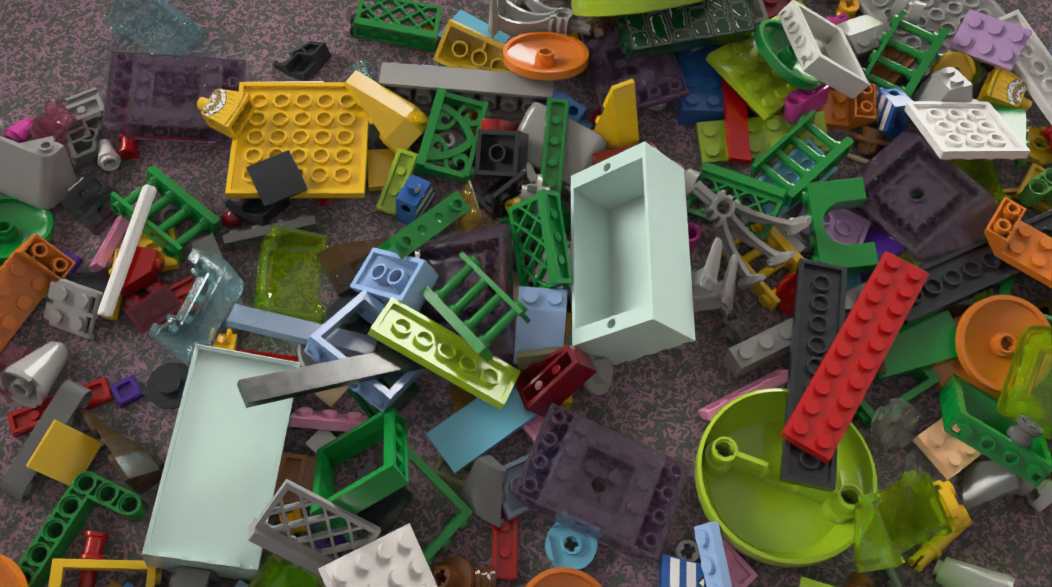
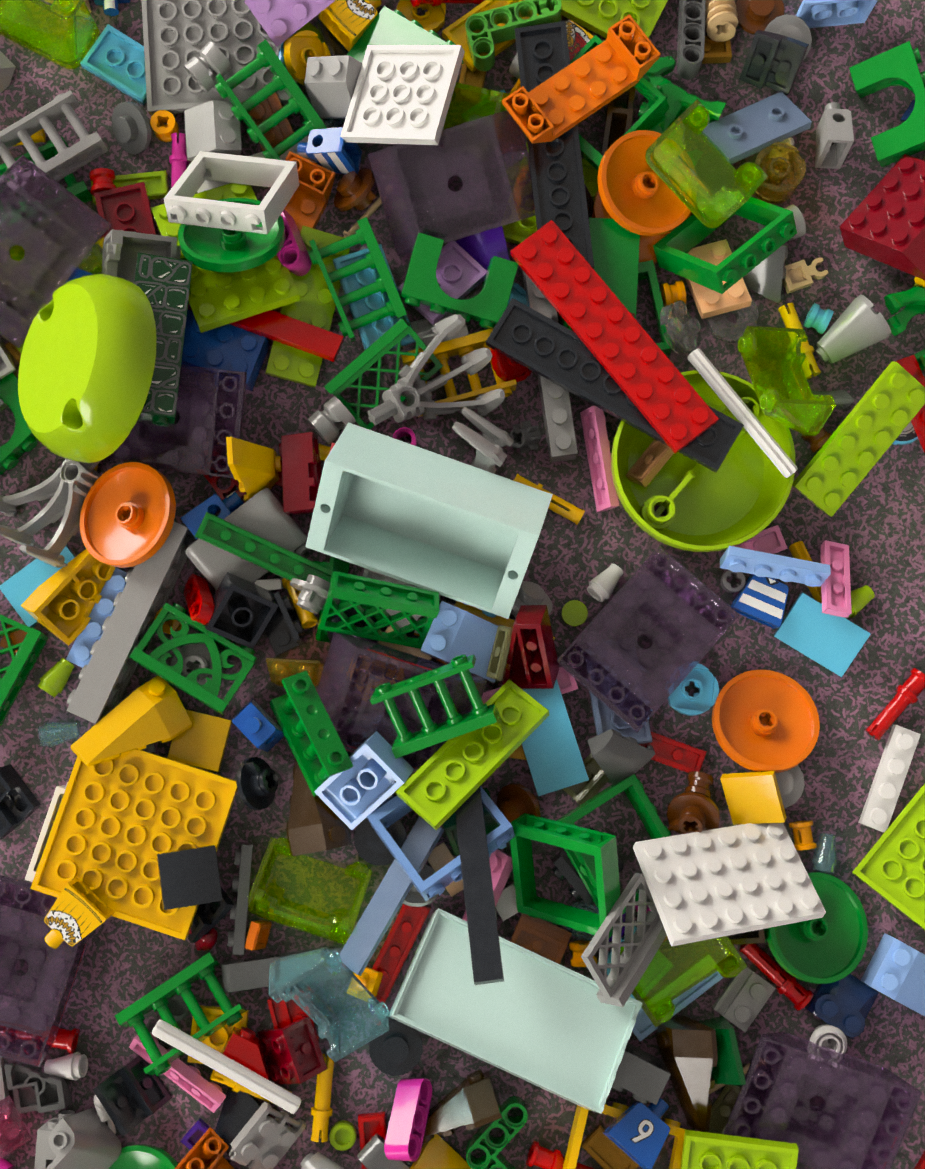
camera: 70 degrees left, 20 degrees up
(86, 371) = (343, 1135): none -> lime tile
(107, 346) = (322, 1109): none -> yellow pin
(109, 410) = (408, 1119): none -> dark pink beam
(127, 391) = (380, 1095): dark purple tile -> none
(243, 253) = (258, 935): none -> orange tile
(367, 211) = (256, 783): none -> black piece
(401, 169) = (222, 735): lime tile -> none
(404, 58) = (56, 677): none -> lime cone
(416, 419) = (516, 800): none -> reddish brown piece
(601, 416) = (574, 613): none -> lime tile
(639, 433) = (604, 583): none -> white cone
(687, 389) = (573, 514): none -> yellow pin
(760, 435) = (649, 463): none -> medium nougat tile
(844, 493) = (742, 413): none -> white axle
(924, 409) = (673, 293): none -> light orange wheel
(955, 513) = (769, 319): yellow plate -> none
(970, 550) = (818, 318): none -> wheel
(1000, 521) = (800, 275): none -> tan plate
(1024, 431) = (750, 220): dark grey wheel -> none

